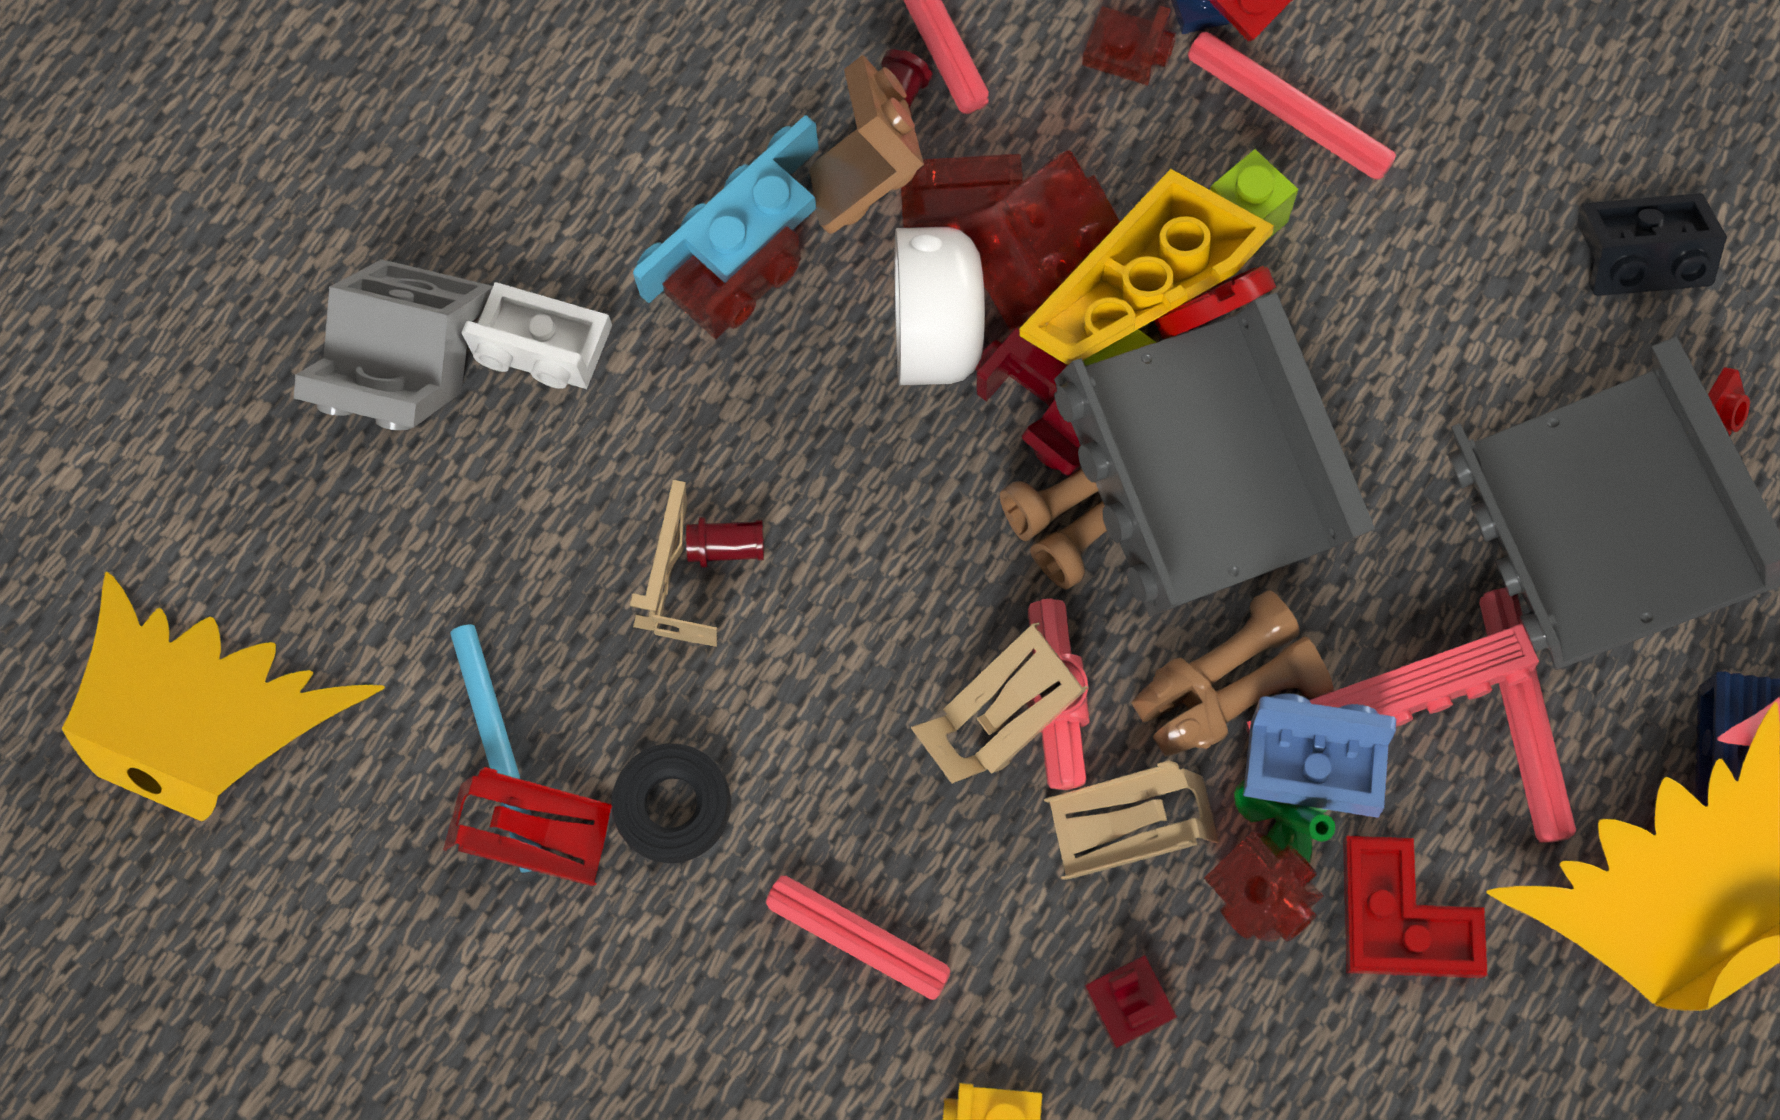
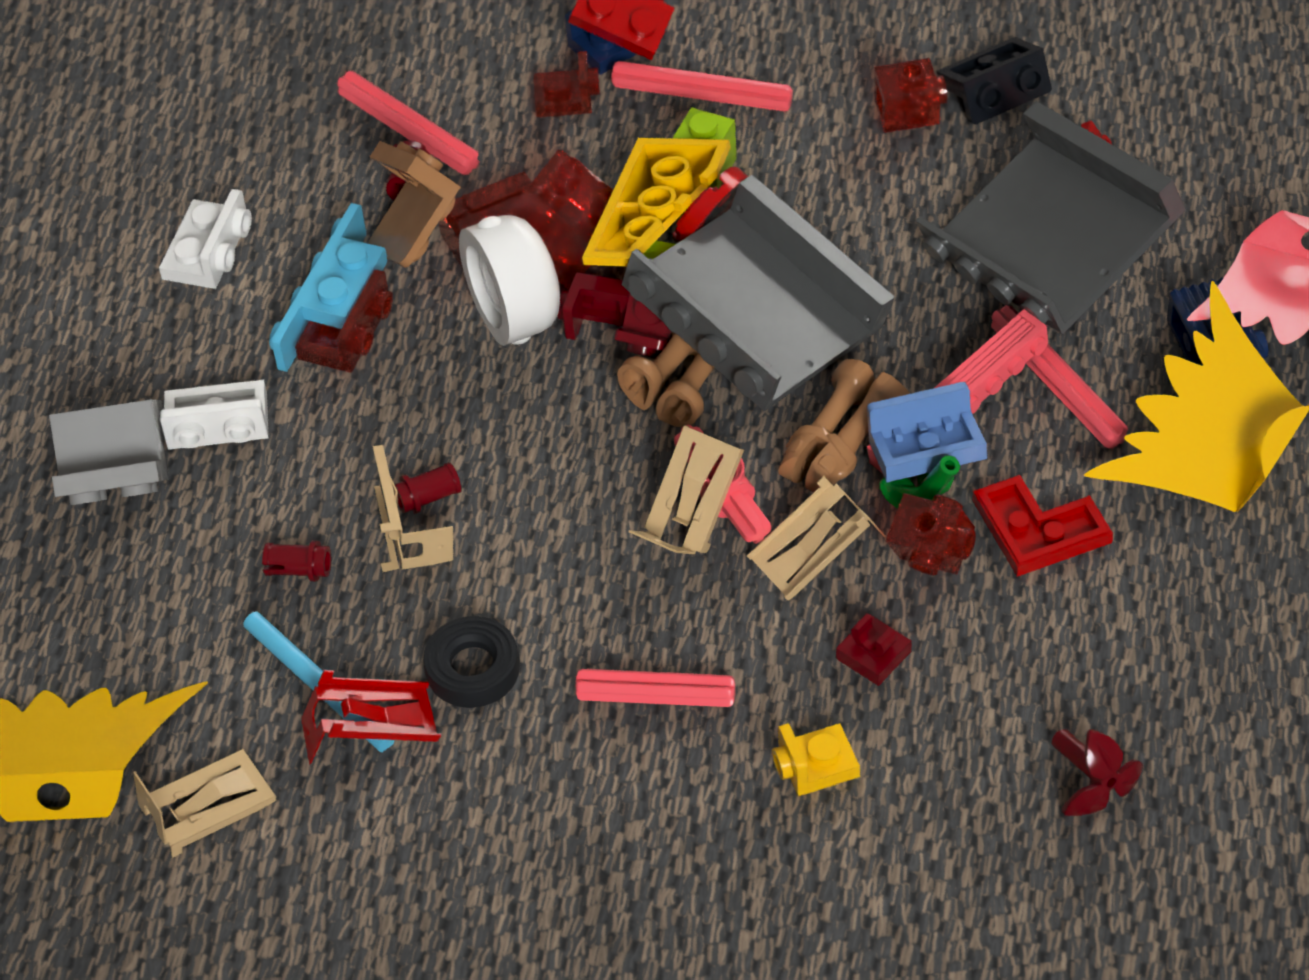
camera: 25 degrees left, 20 degrees down
(350, 843) = (215, 785): none -> tan piece
(553, 582) = (297, 560): none -> dark red pin
(634, 88) = (206, 241): none -> white bracket
(1530, 230) = (908, 95): none -> clear red brick

